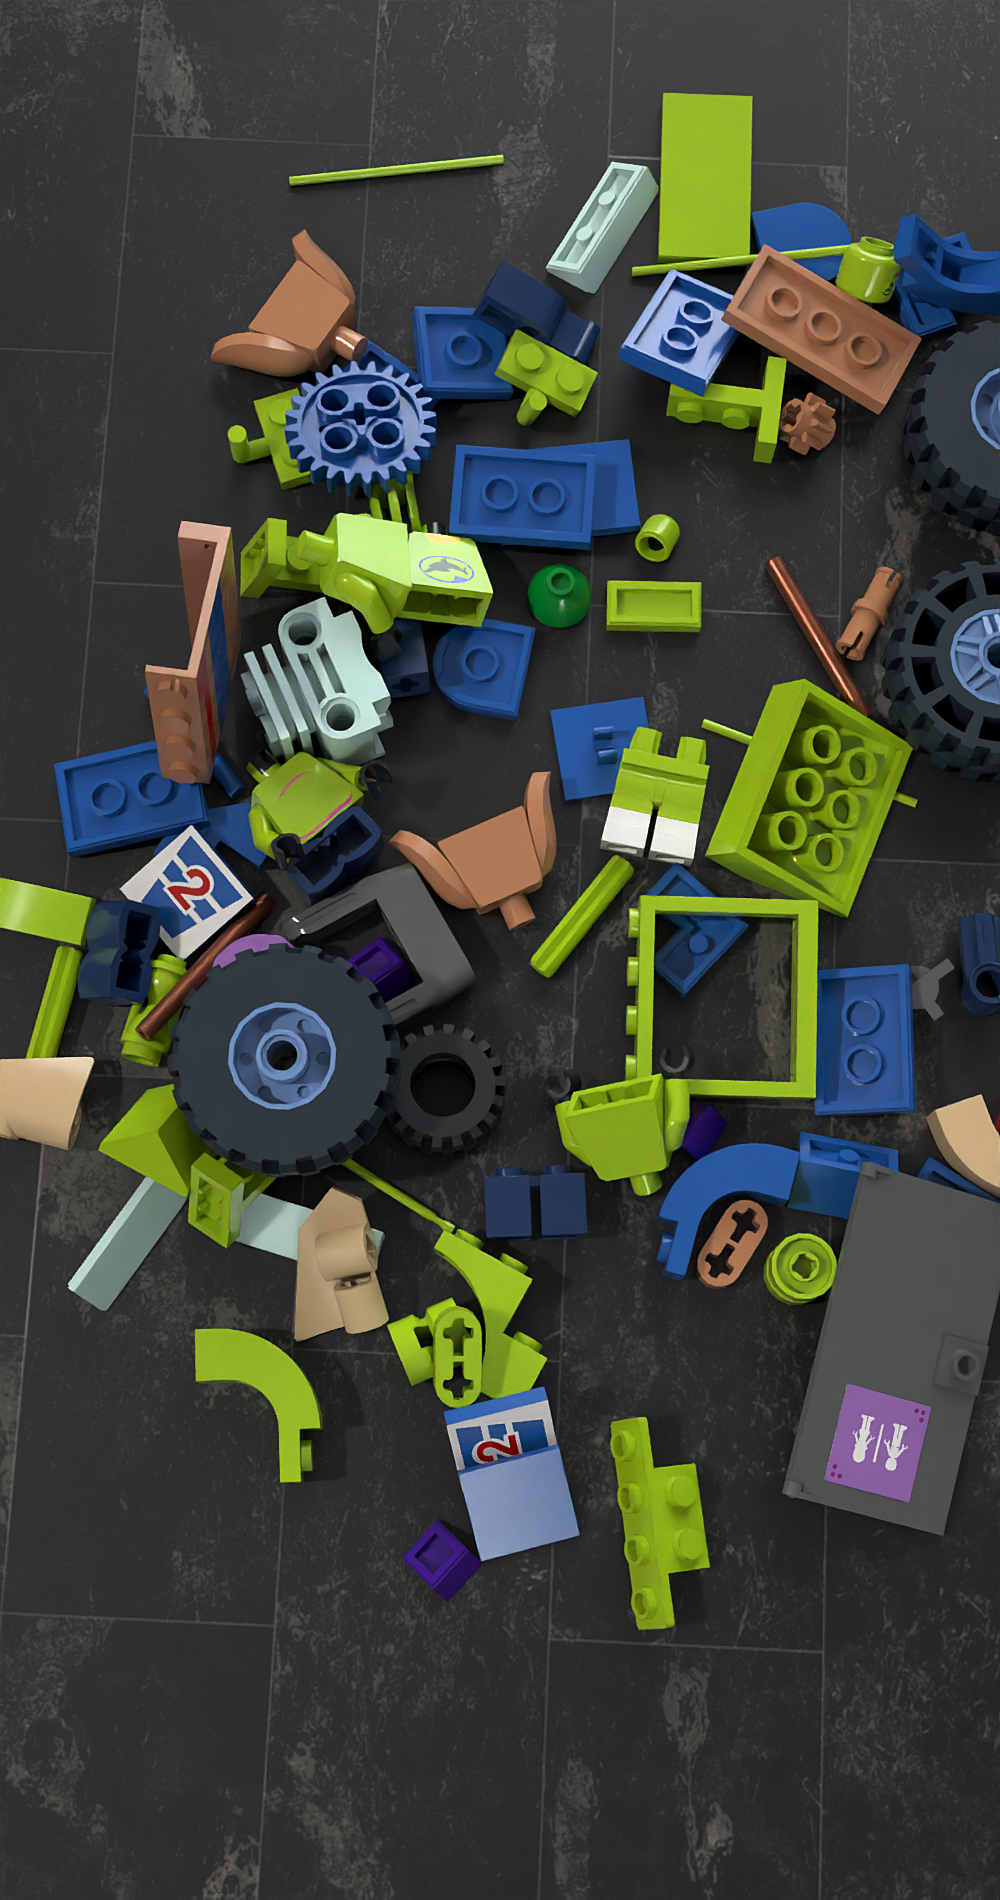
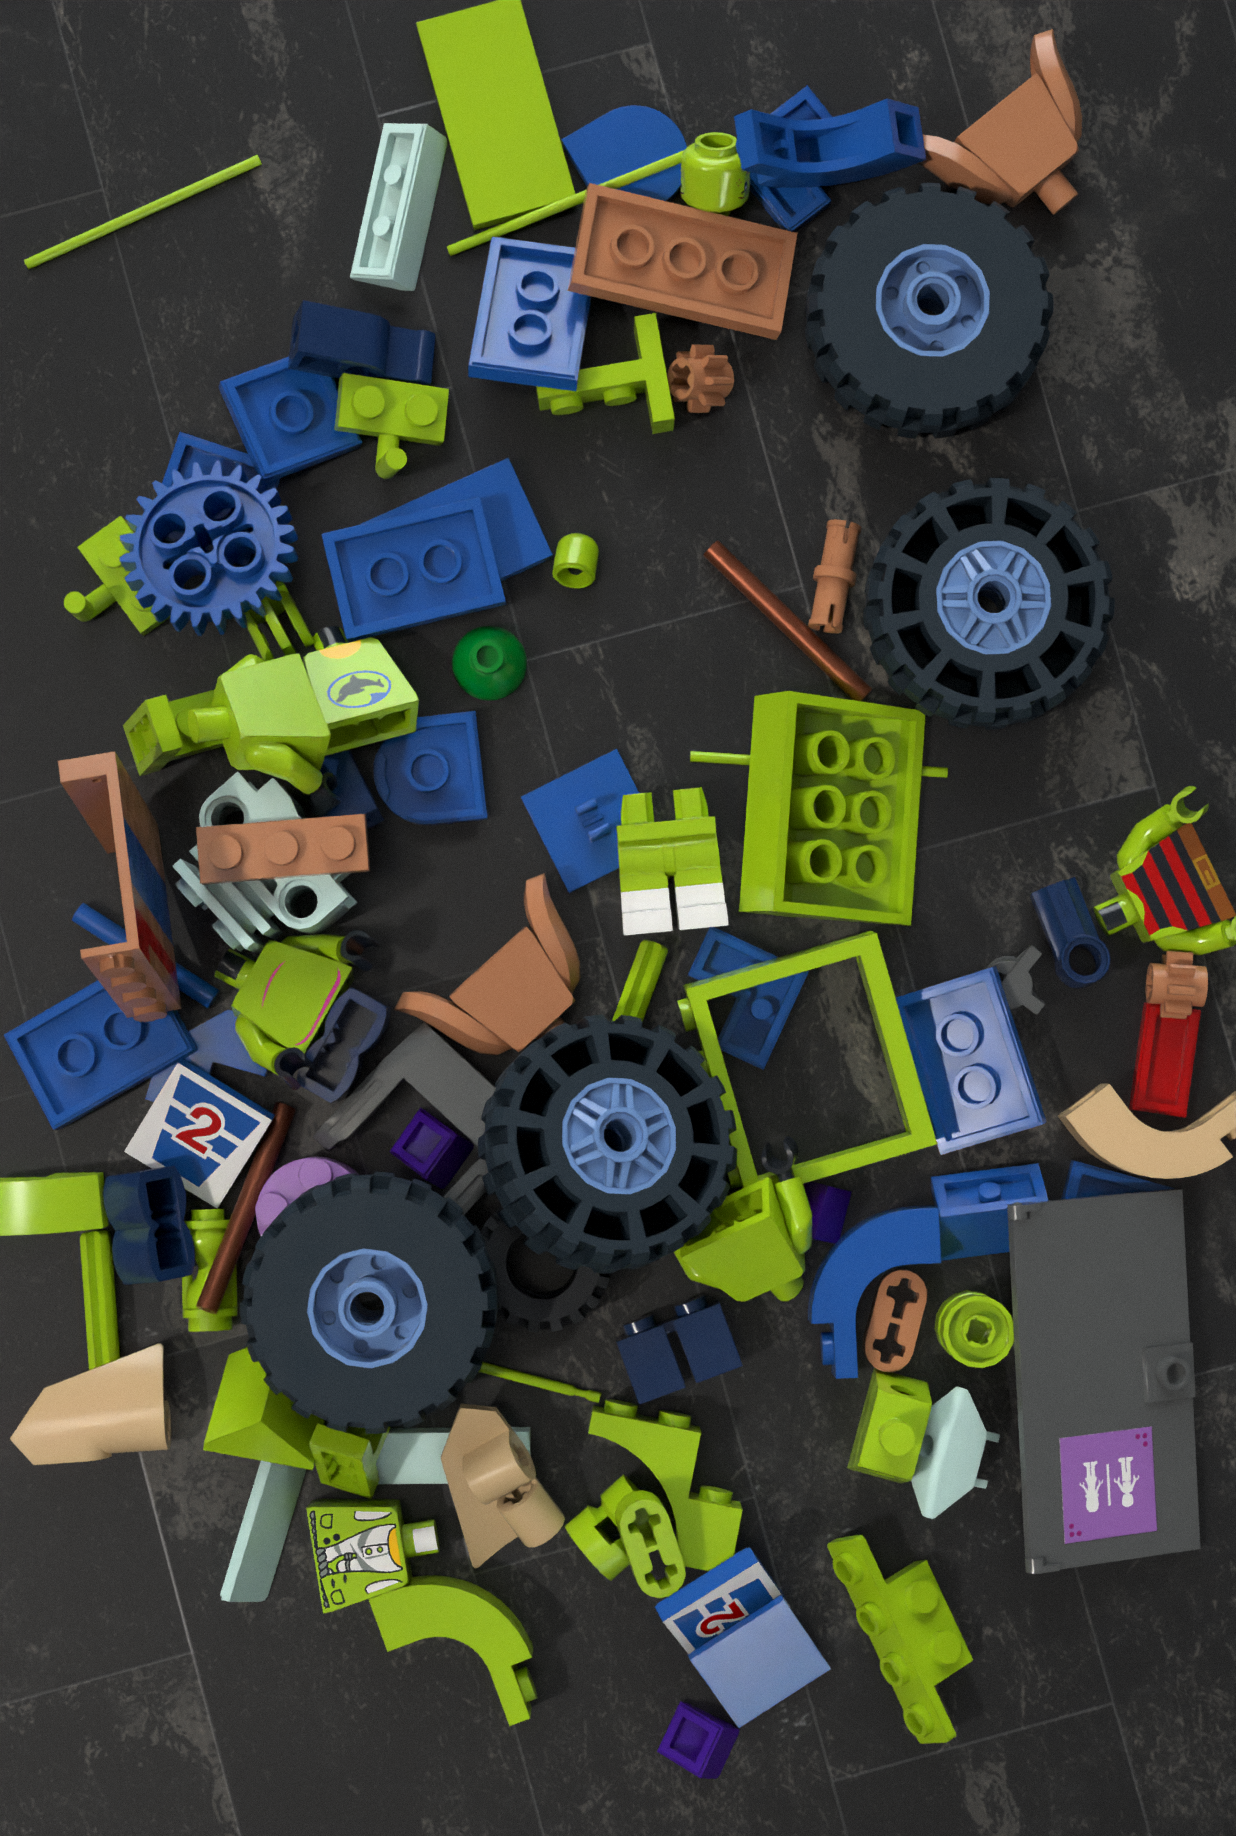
camera: 20 degrees left, 10 degrees up
(206, 1288) = (364, 1548): none -> torso
(301, 322) = (100, 436): nougat torso -> none
(340, 667) = (283, 849): none -> nougat plate
(532, 997) = (562, 1177): none -> black wheel
(653, 606) = (596, 641): lime tile -> none
(697, 1336) = (891, 1427): none -> lime torso
(744, 1369) = (950, 1453): none -> light aqua piece

